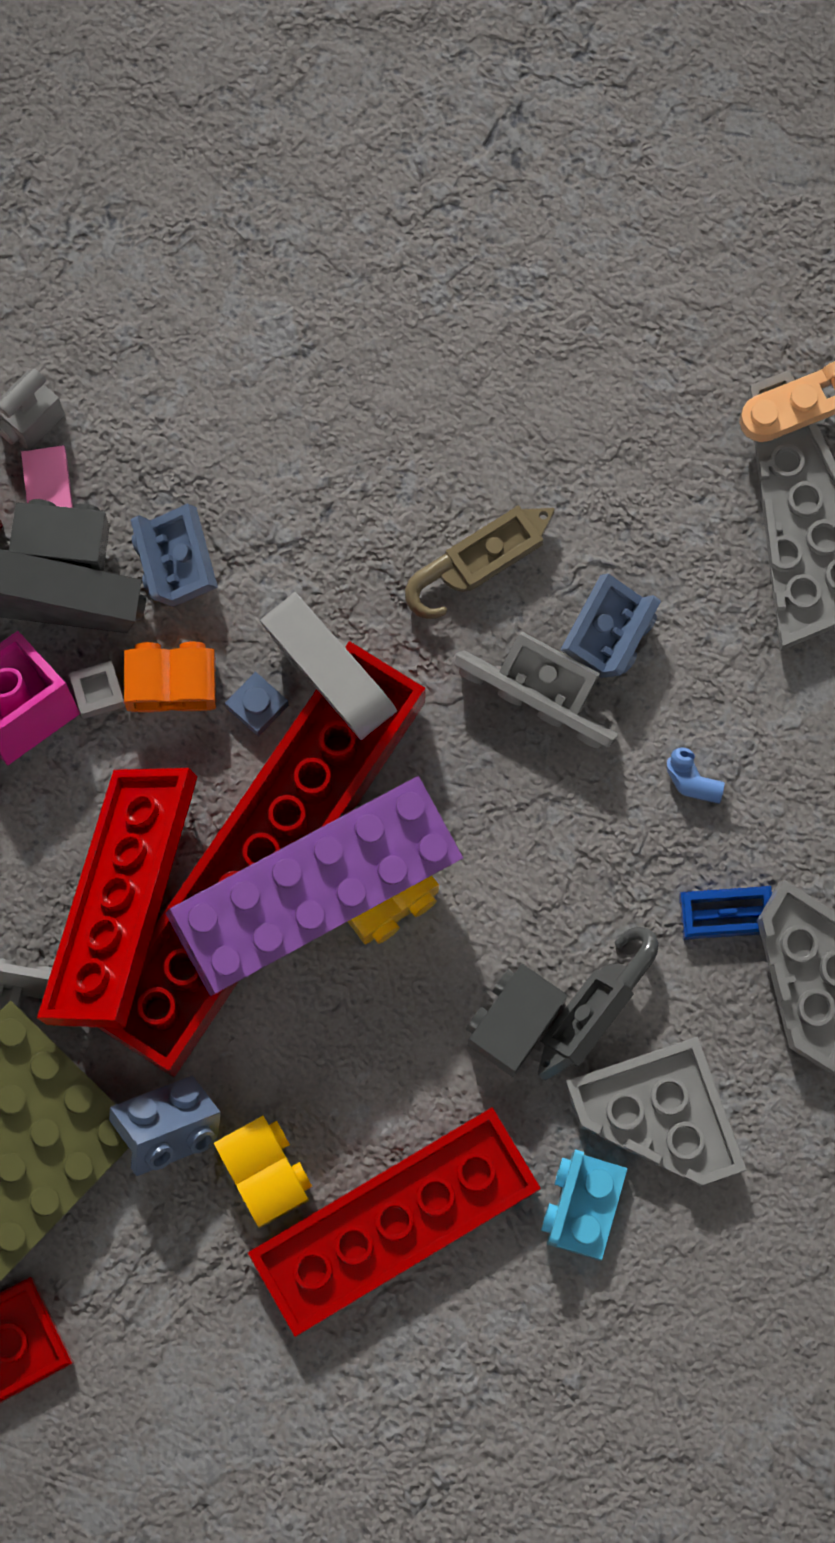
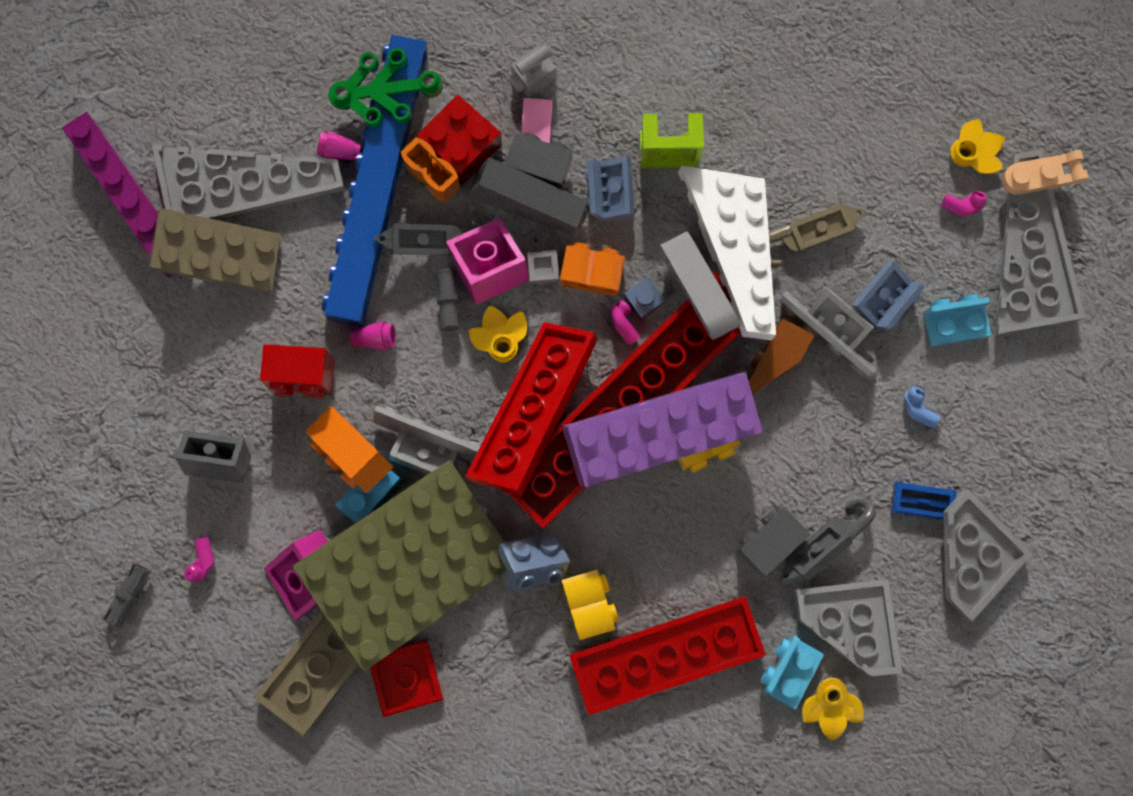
camera: 10 degrees right, 5 degrees up
(50, 796) = (499, 330): none -> yellow plate
(230, 748) = (621, 323): none -> dark pink arm
(250, 481) = (671, 150): none -> lime panel
(372, 585) = (737, 237): none -> white wing
(472, 746) = (779, 355): none -> dark orange slope
(660, 1252) = (835, 712): none -> yellow plate
(699, 473) = (966, 206): none -> dark pink arm
(702, 386) = (980, 148): none -> yellow plate
(720, 639) = (957, 321): none -> medium azure bracket

